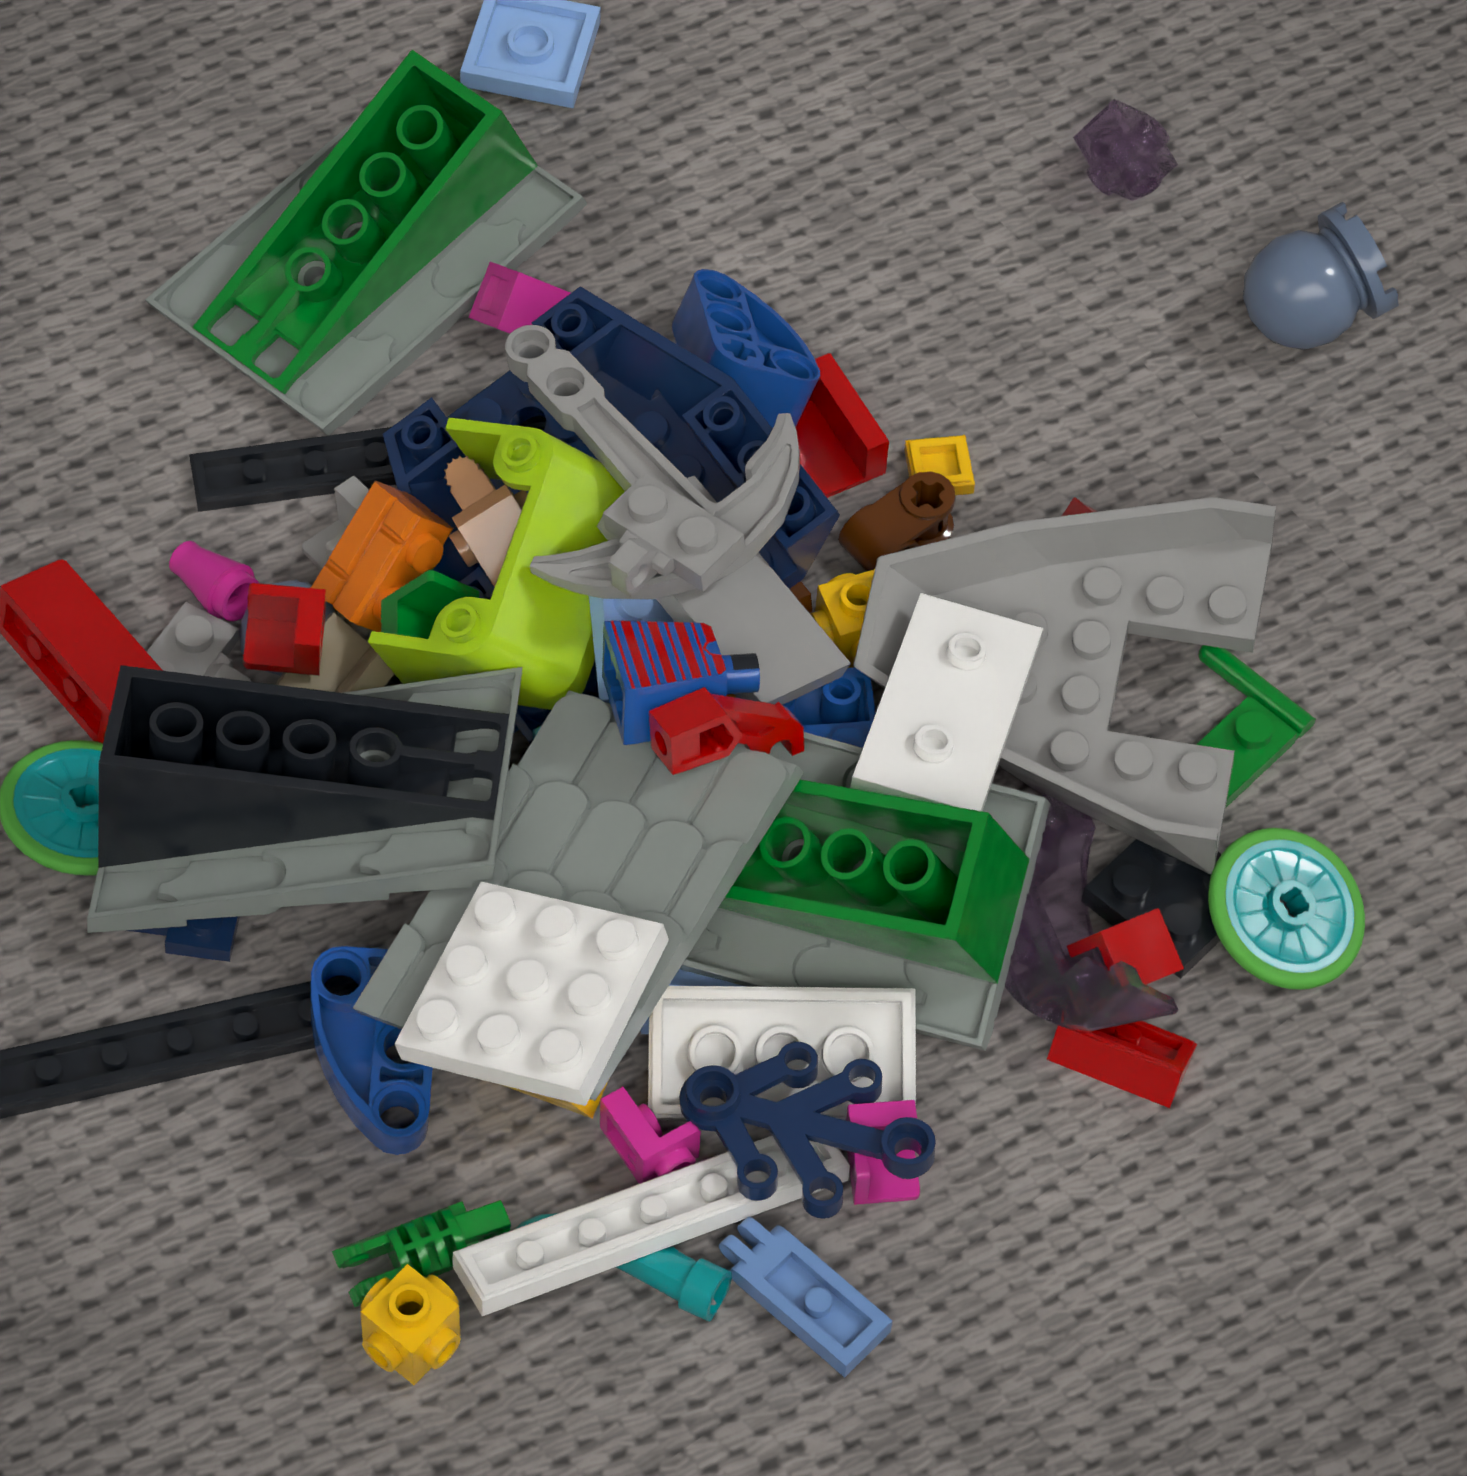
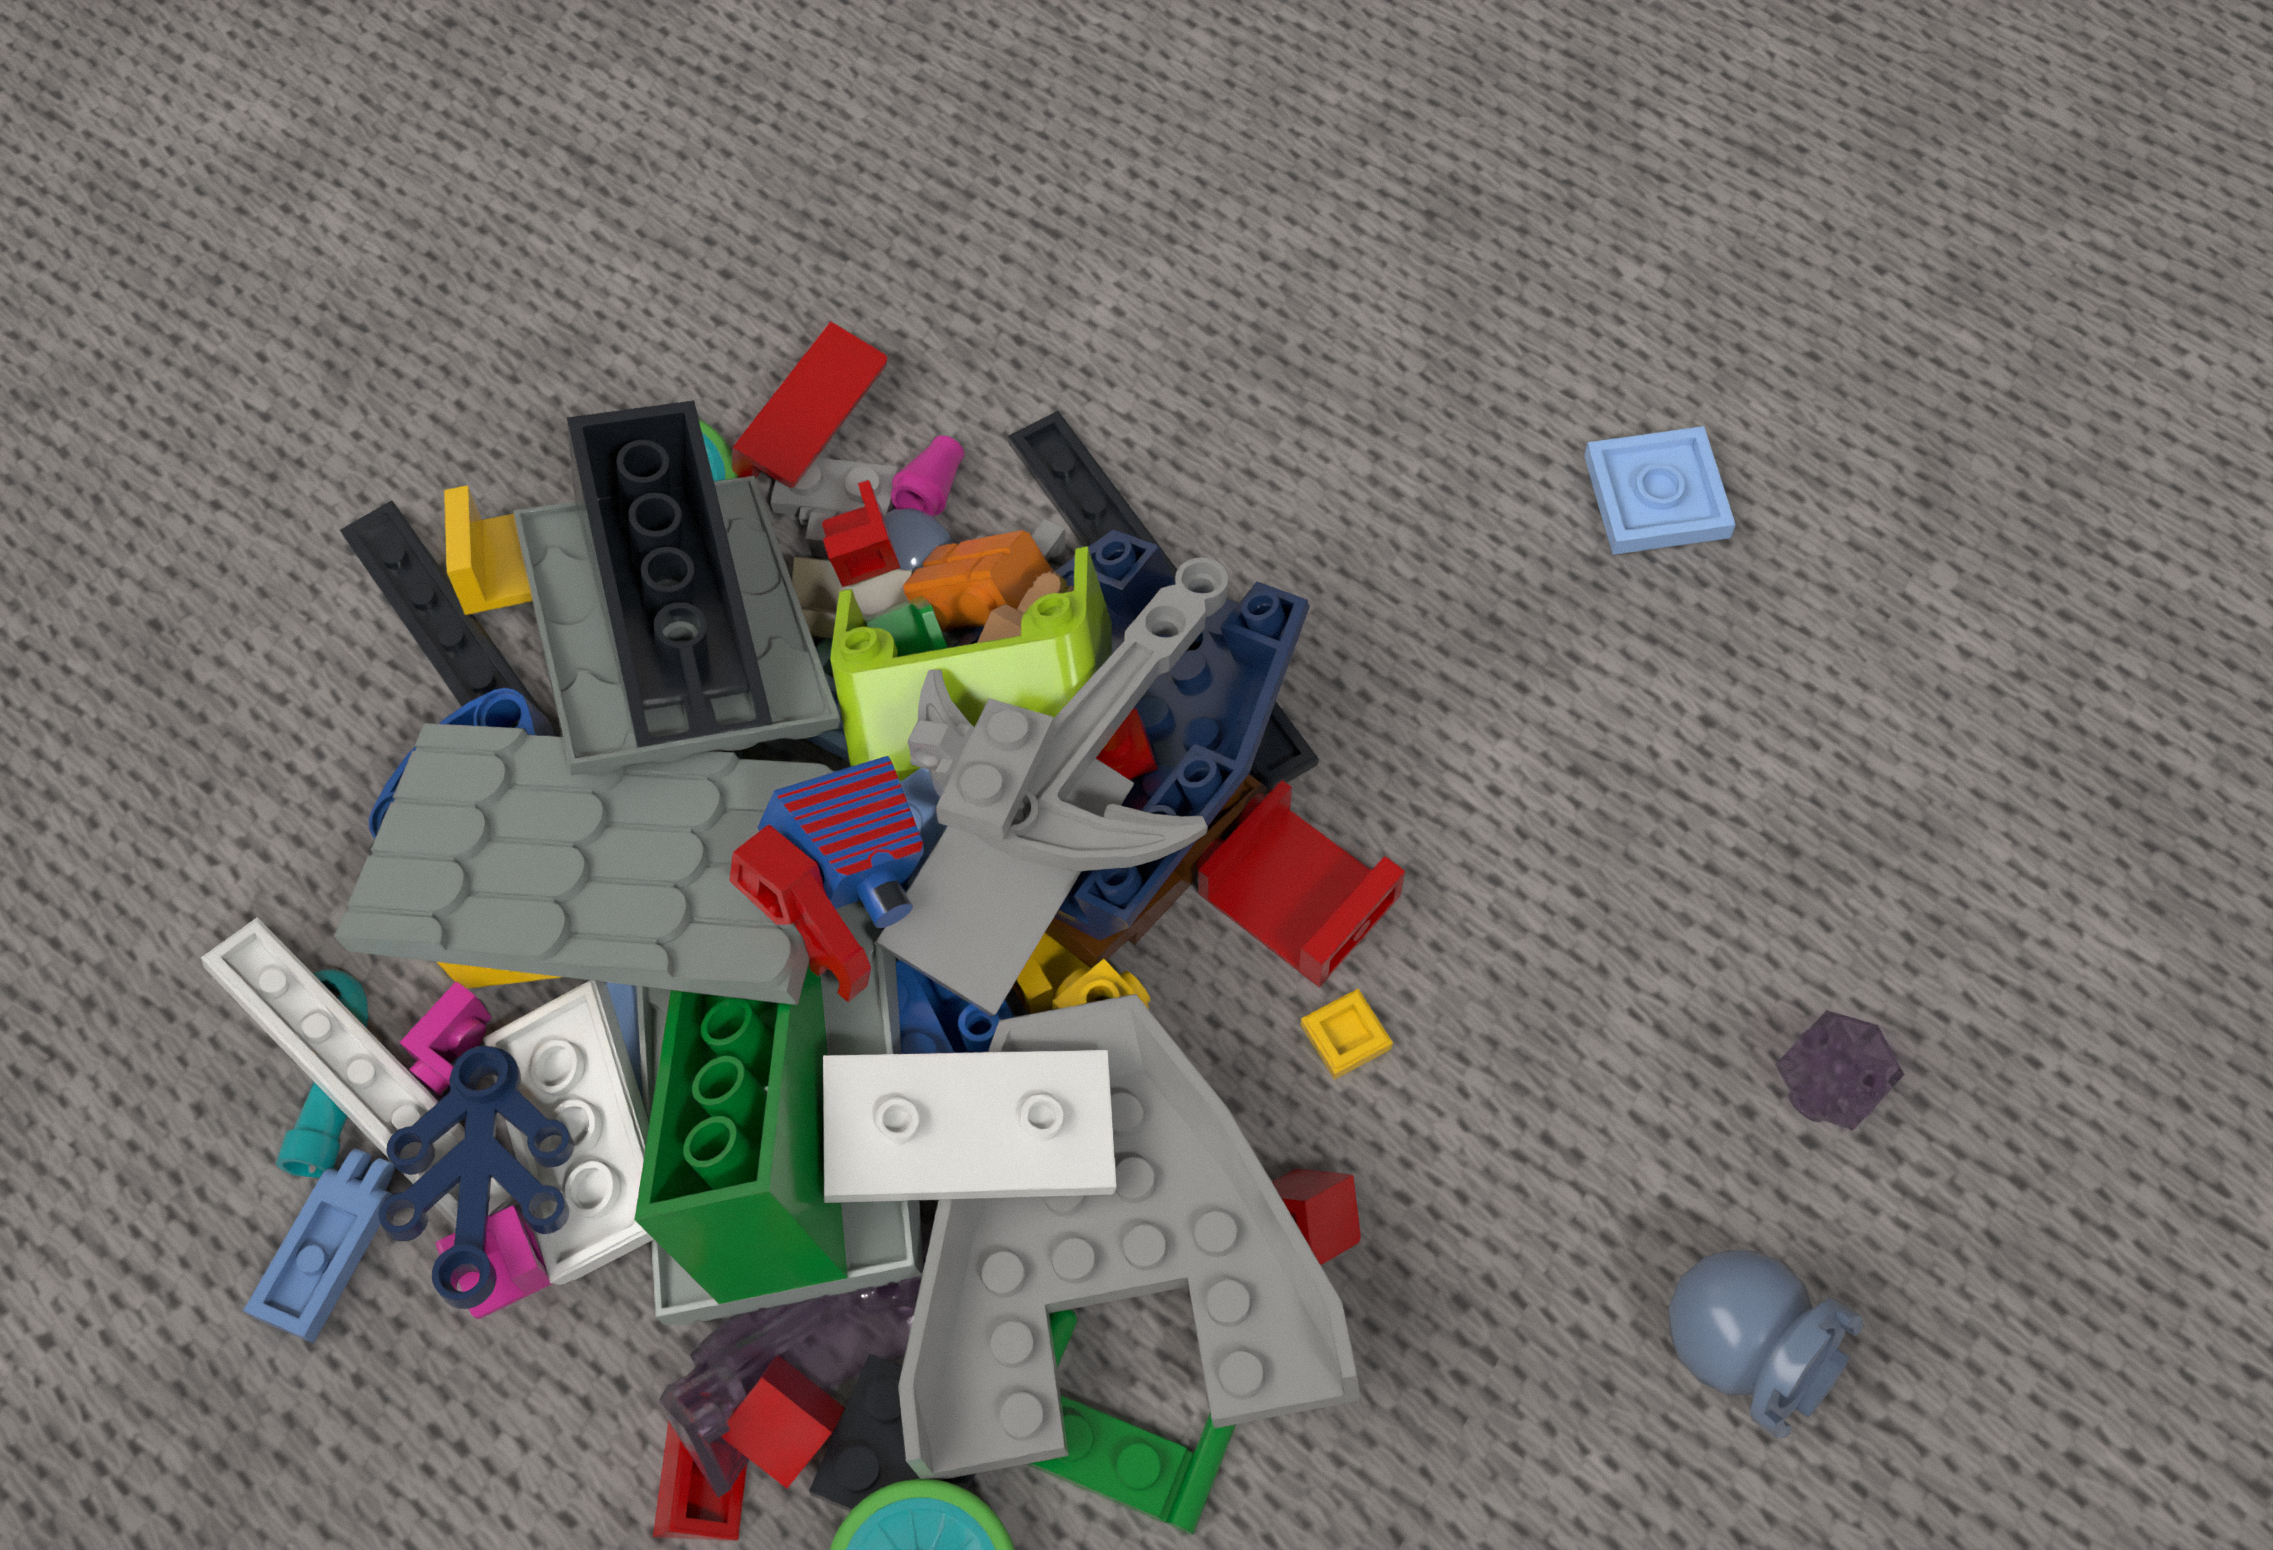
camera: 75 degrees right, 5 degrees up
(102, 978) = (482, 556): none -> yellow panel
(351, 244) = (1394, 438): piece -> none
(412, 1341) = (194, 912): yellow brick -> none
(424, 1242) = (289, 901): green hinge -> none
(512, 299) = (1346, 596): dark pink panel -> none
(532, 993) = (438, 852): white plate -> none
(747, 342) = (1365, 808): blue beam -> none
(901, 519) = (1233, 1017): reddish brown piece -> none

